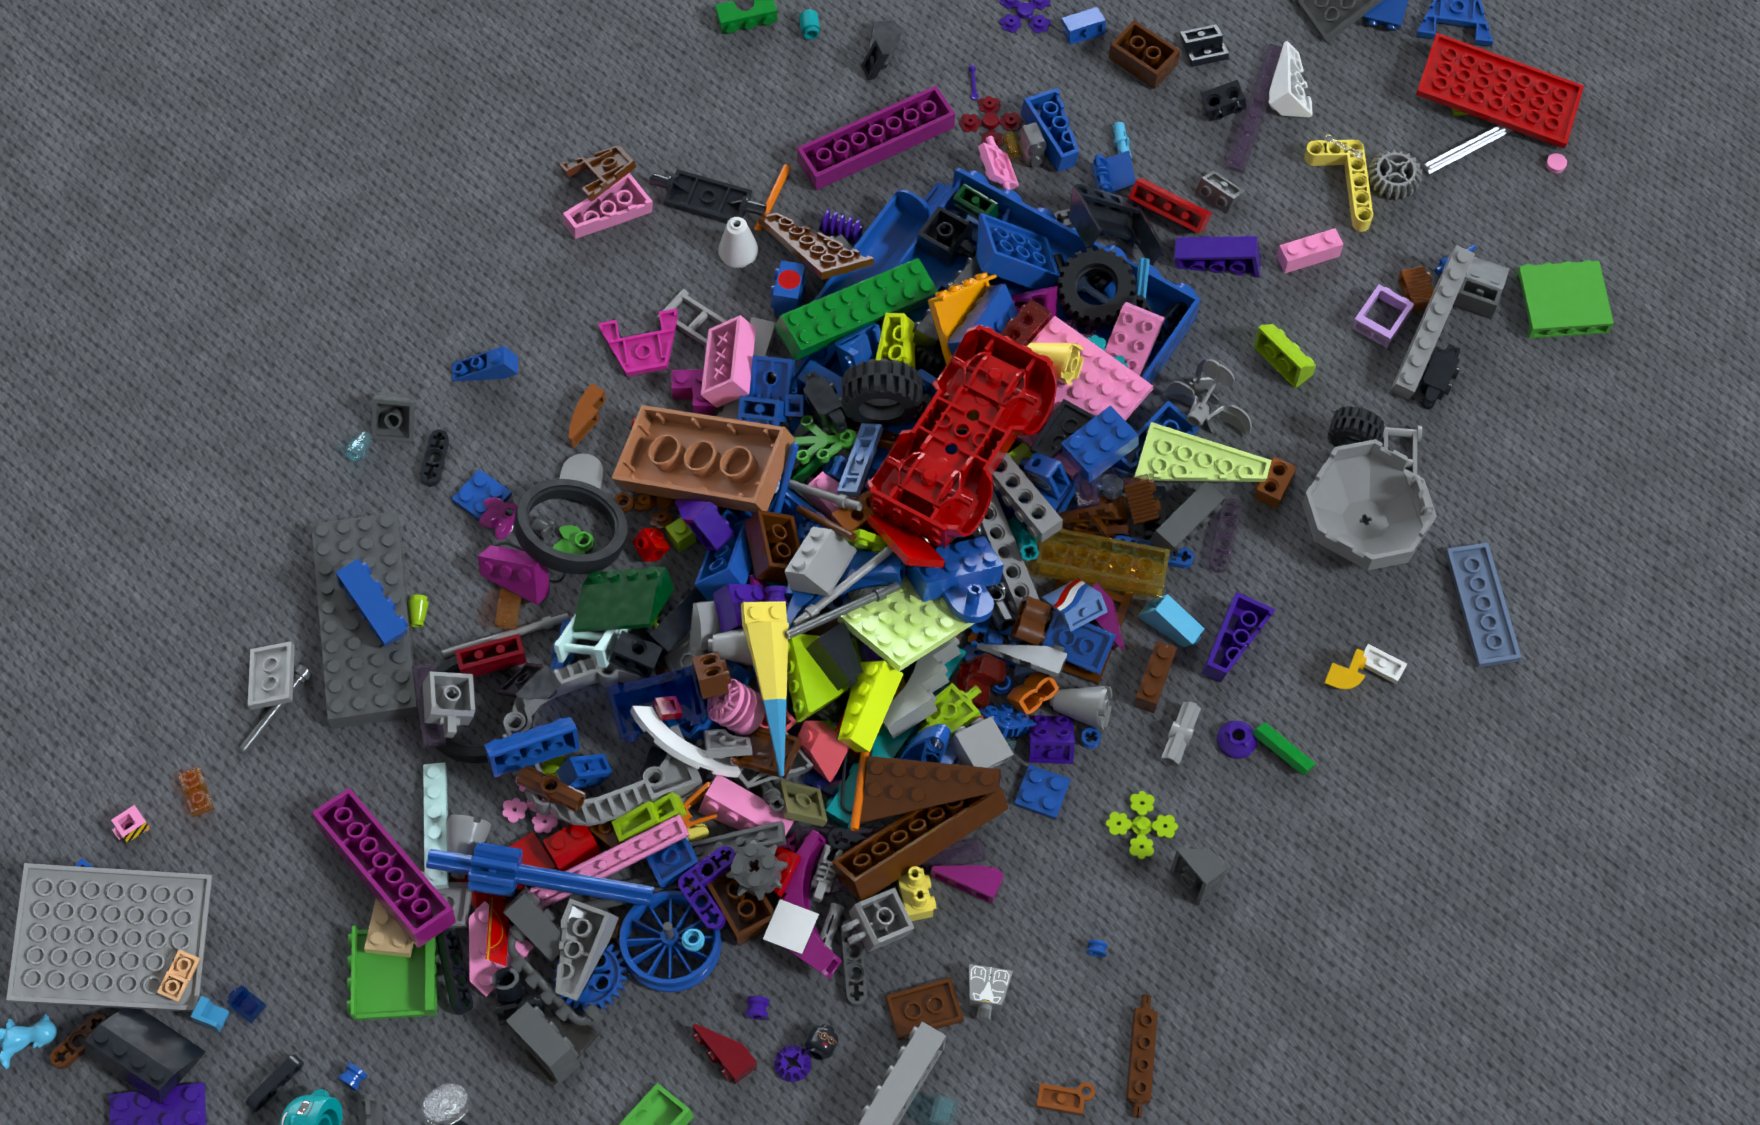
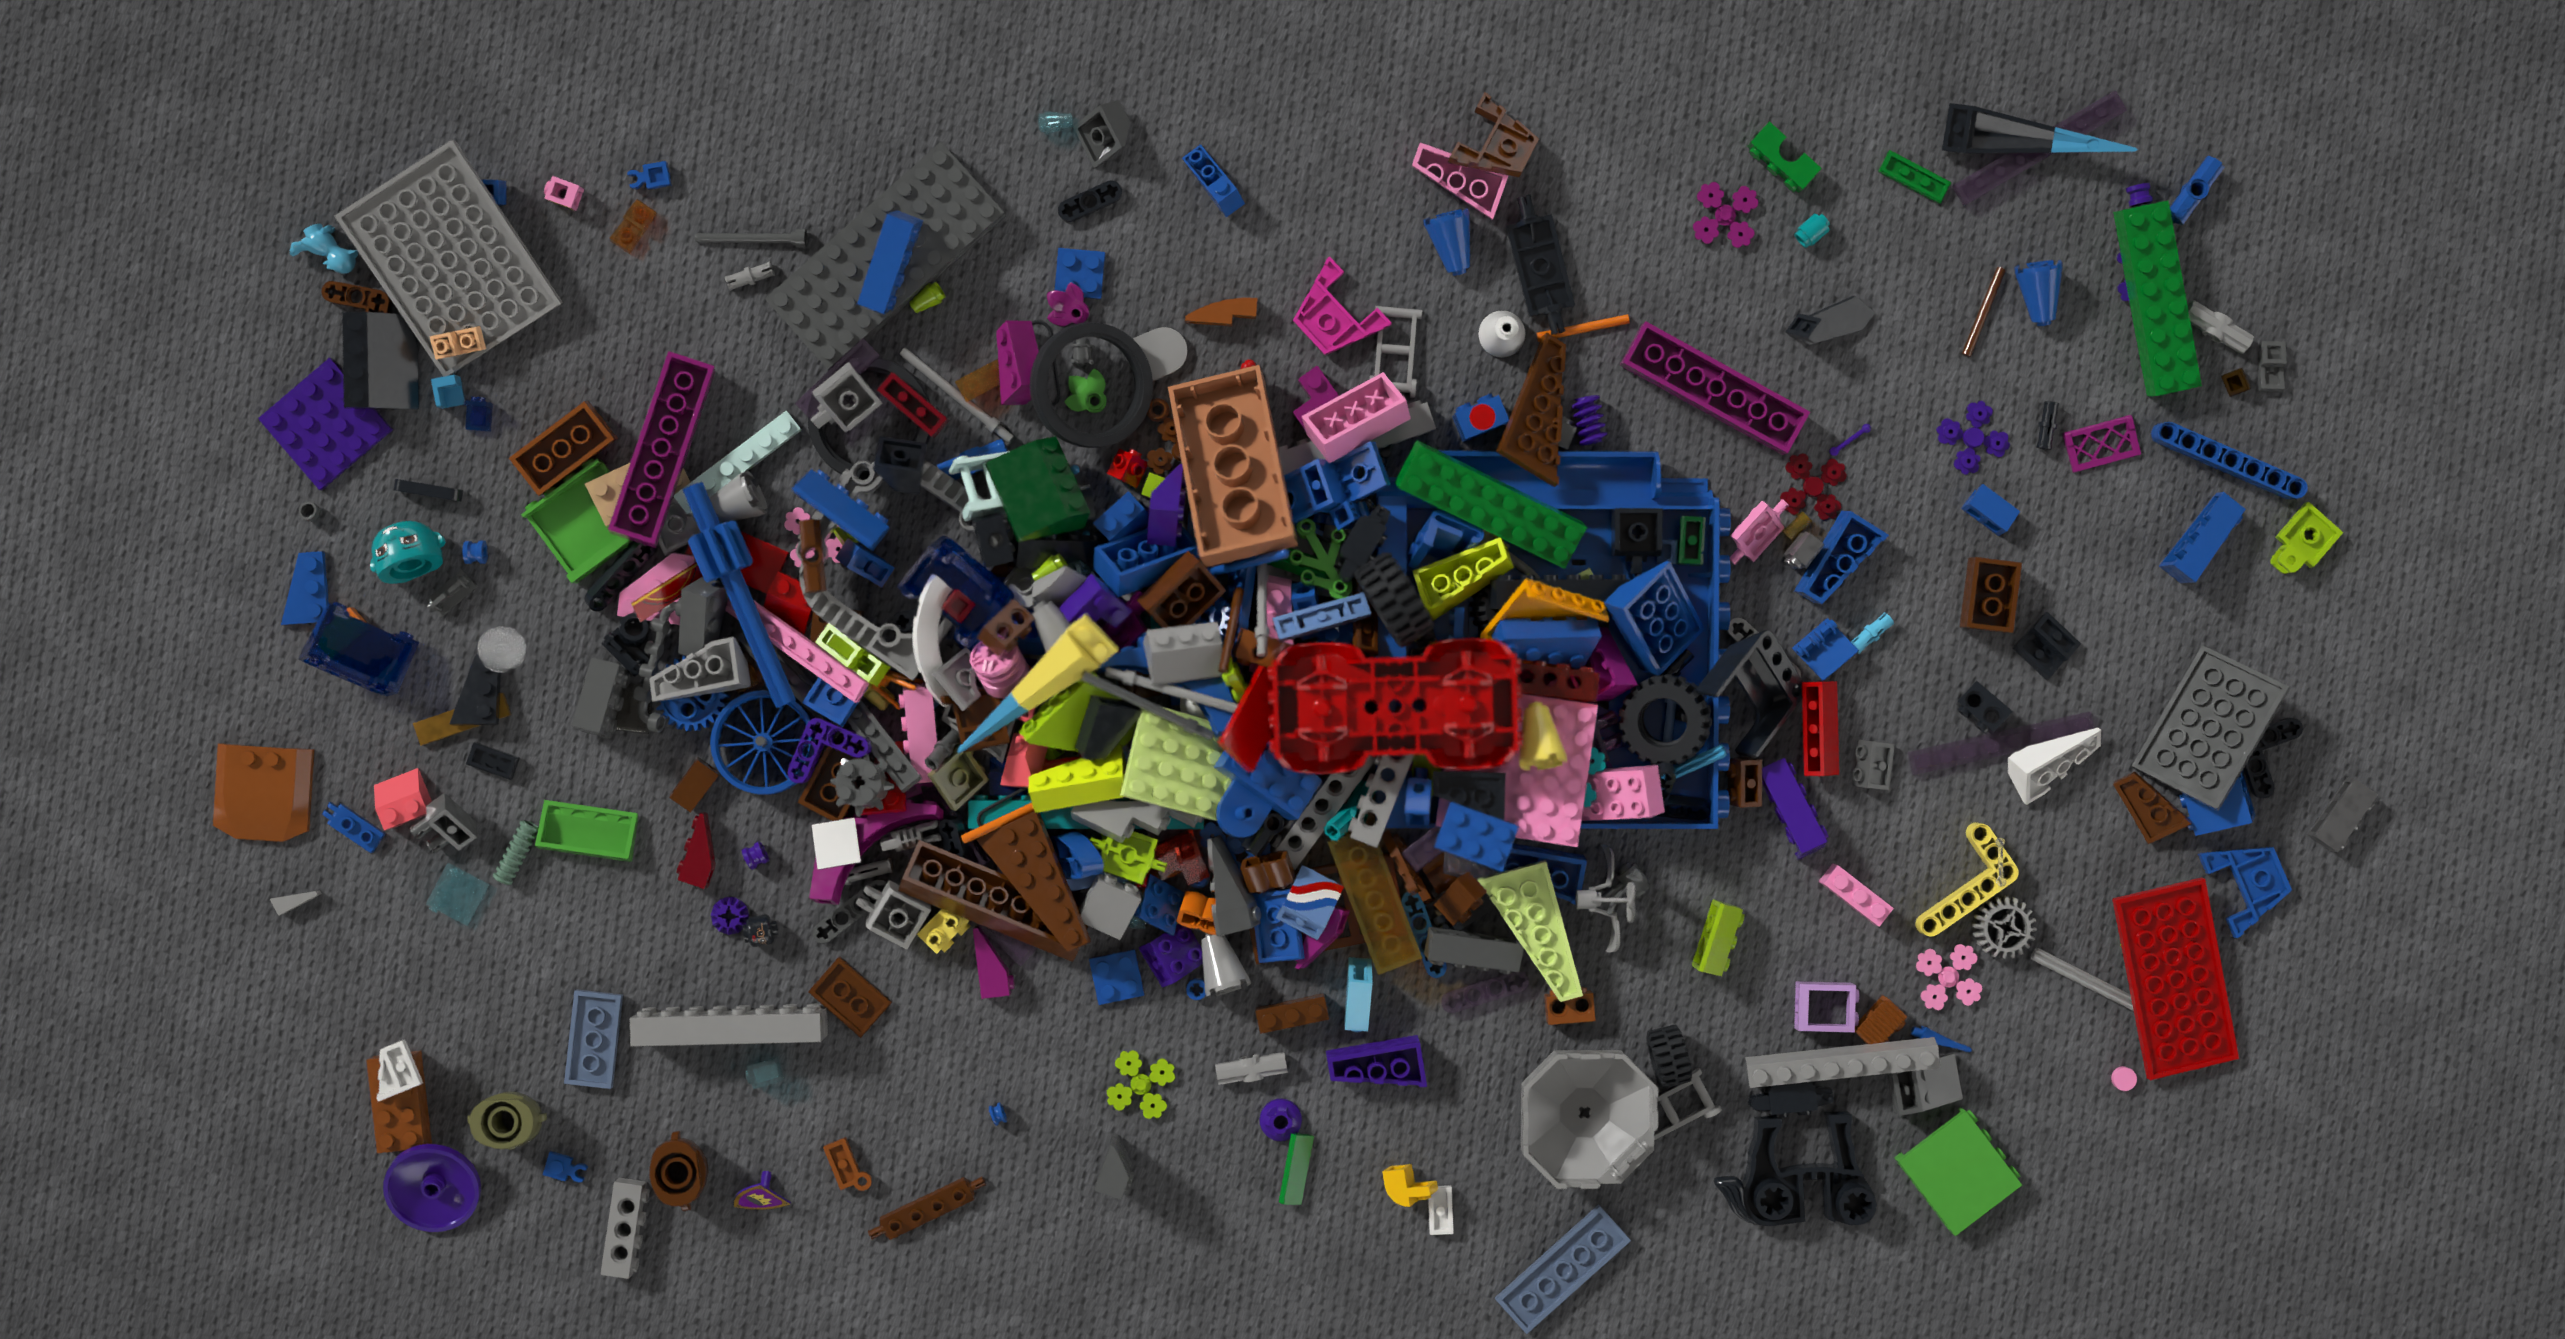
camera: 55 degrees right, 25 degrees up
(170, 750) = (654, 176): none -> blue plate
(271, 675) = (777, 213): light grey plate -> none
(301, 728) = (749, 276): none -> light grey pin
(323, 949) = (563, 448): none -> dark orange brick
(646, 238) = (1451, 239): none -> blue cone
(665, 1020) = (694, 784): none -> reddish brown hinge
(685, 629) = (1050, 565): none -> lime cone
(687, 560) = (1123, 518): none -> blue slope
(690, 934) = (769, 774): medium azure plate -> none
(759, 70) = (1725, 214): none -> magenta plant
(776, 593) = (1126, 632): dark purple wheel -> none
(987, 989) = (899, 1043): light grey torso -> none
(1178, 270) = (1745, 782): none -> reddish brown brick
(1364, 44) = (2149, 809): none -> reddish brown wing
(1409, 229) = (1949, 977): none -> bright pink plant
(1510, 425) = (1777, 1195): none -> black animal

